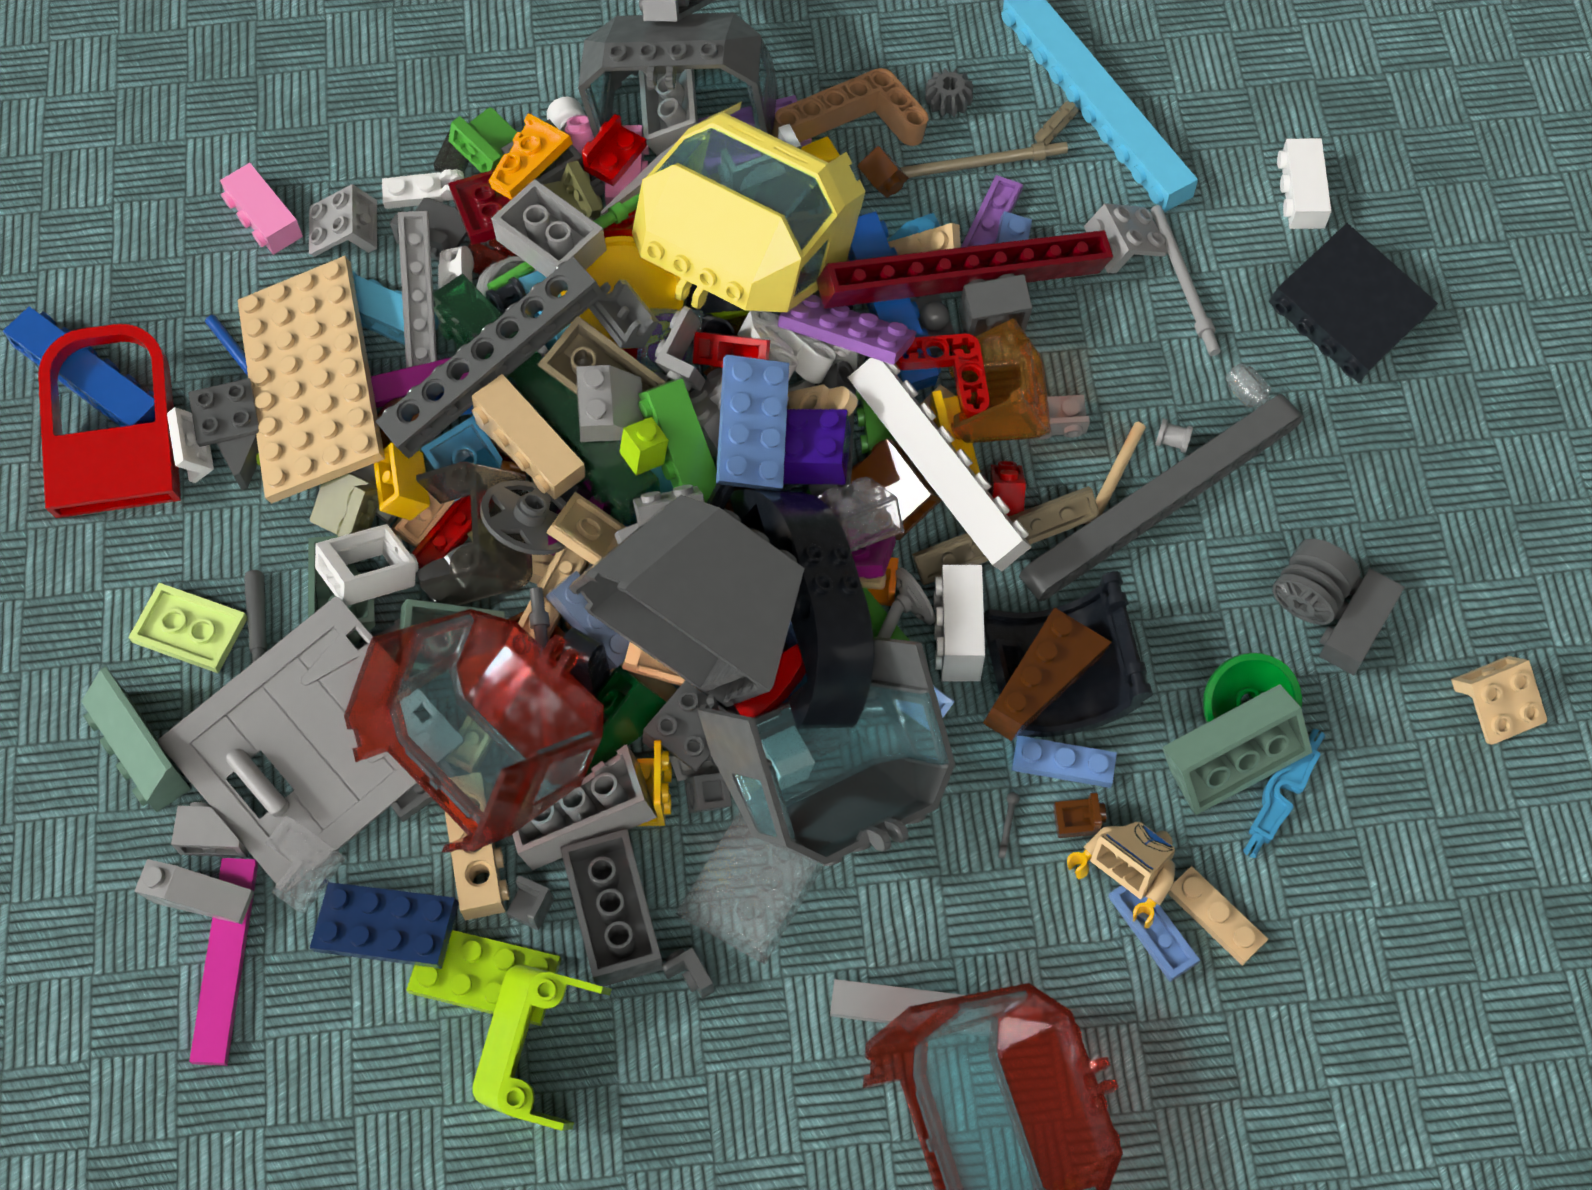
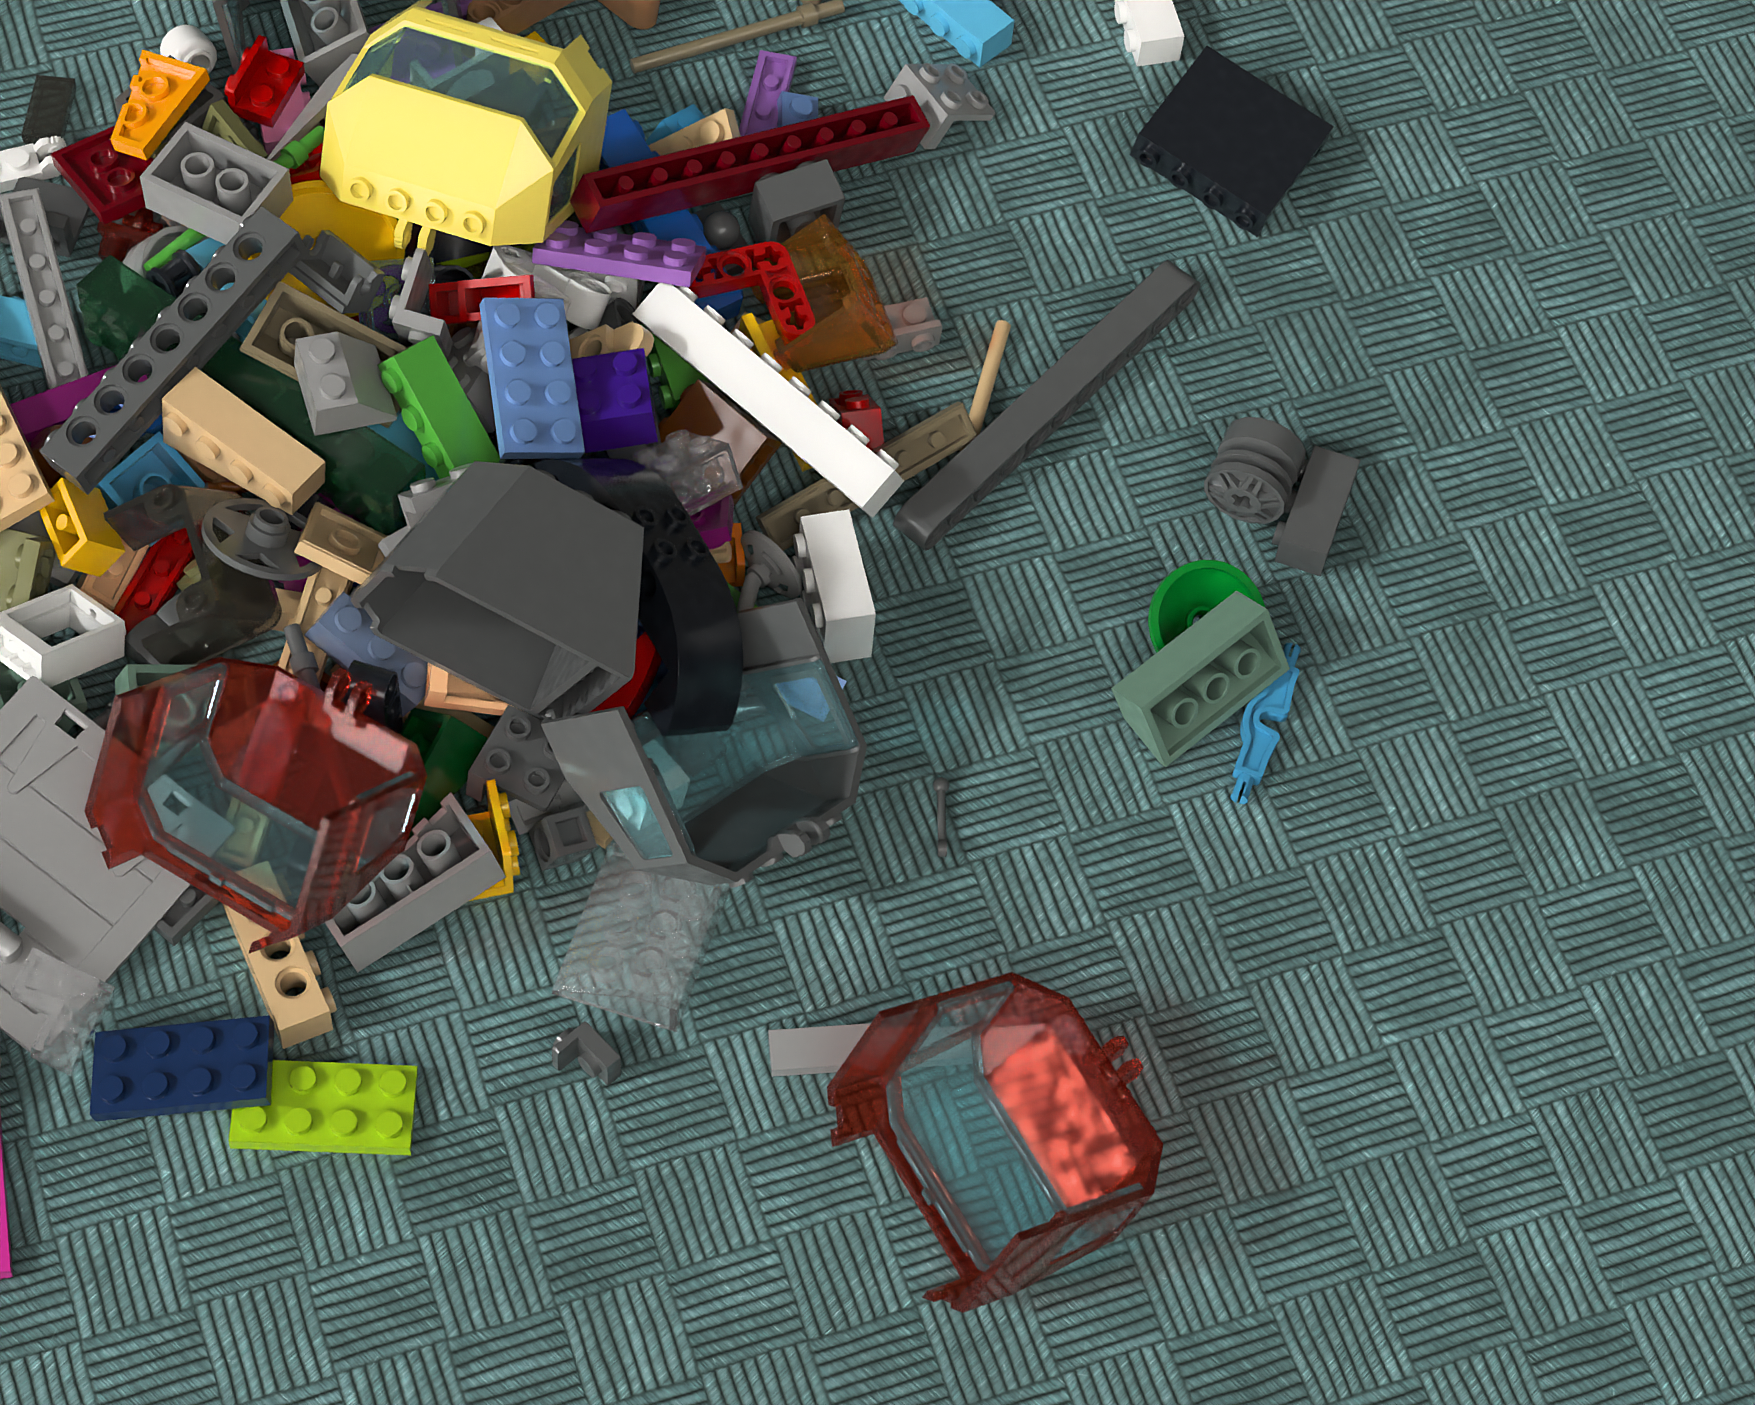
camera: 20 degrees left, 5 degrees down
(453, 263) = (82, 254): white leg -> none
(482, 138) = (83, 93): bright green bracket -> none
(494, 1080) = (371, 1221): lime windscreen -> none
(530, 903) = (364, 1009): dark grey panel -> none
(579, 131) = (217, 65): bright pink brick -> none
(611, 908) = (473, 995): dark grey brick -> none
(643, 446) = (399, 425): lime brick -> none
(883, 172) = (620, 63): reddish brown brick -> none
(1048, 668) = (956, 617): reddish brown wedge -> none
(1064, 761) = (994, 731): medium blue plate -> none
(1079, 817) = (1027, 790): reddish brown bracket -> none
(1106, 689) = (978, 614): black hinge -> none
(1134, 859) = (1104, 824): tan torso -> none
(1160, 940) = (1143, 902): medium blue plate -> none
(1174, 435) = (1048, 329): light grey bush -> none
(1203, 325) = (1056, 194): light grey bar -> none
(1217, 915) = (1214, 876): tan plate -> none
(1248, 386) = (1125, 257): clear brick -> none
(1503, 697) = (1501, 571): tan bracket -> none

